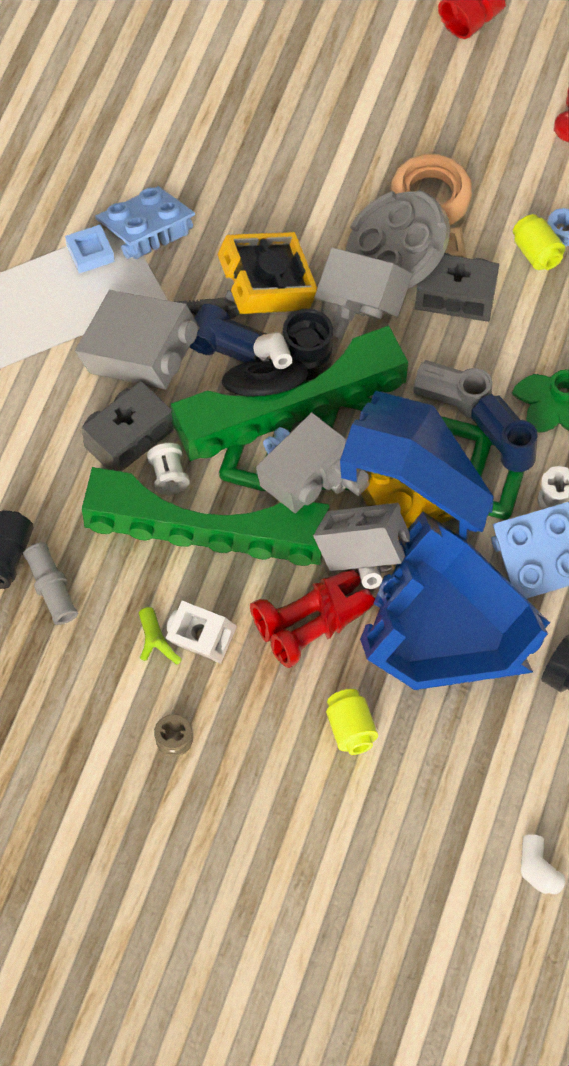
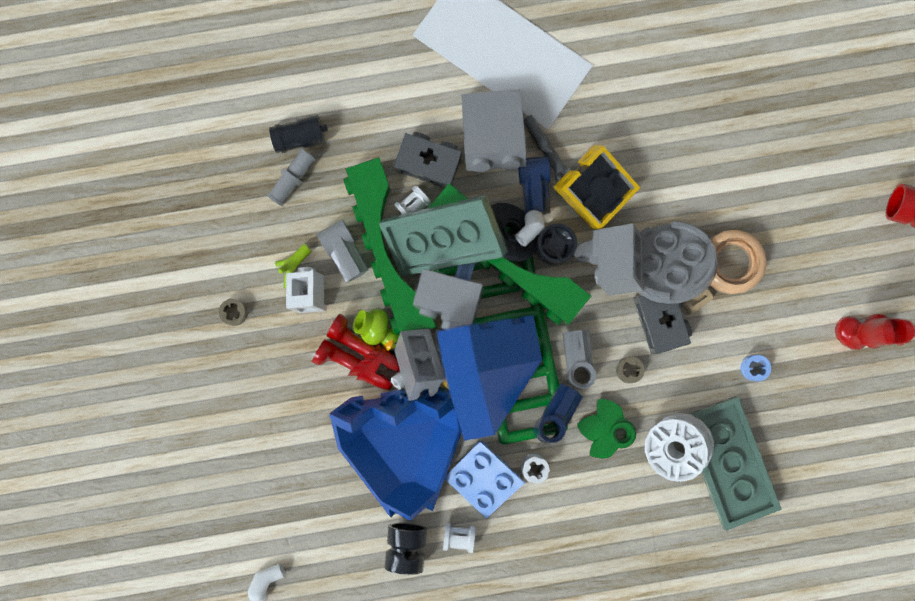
camera: 65 degrees right, 25 degrees up
(89, 248) = (553, 55): light blue plate -> none
(147, 220) = (599, 78): light blue hinge -> none
(164, 569) = (340, 245): none -> light grey piece
(229, 434) = (444, 236): none -> sand green plate
(290, 577) = (373, 328): none -> lime animal
(351, 721) = (295, 419): neon yellow brick -> none
(500, 336) = (630, 379): none -> dark tan bush
(538, 242) = (730, 358): neon yellow brick -> none

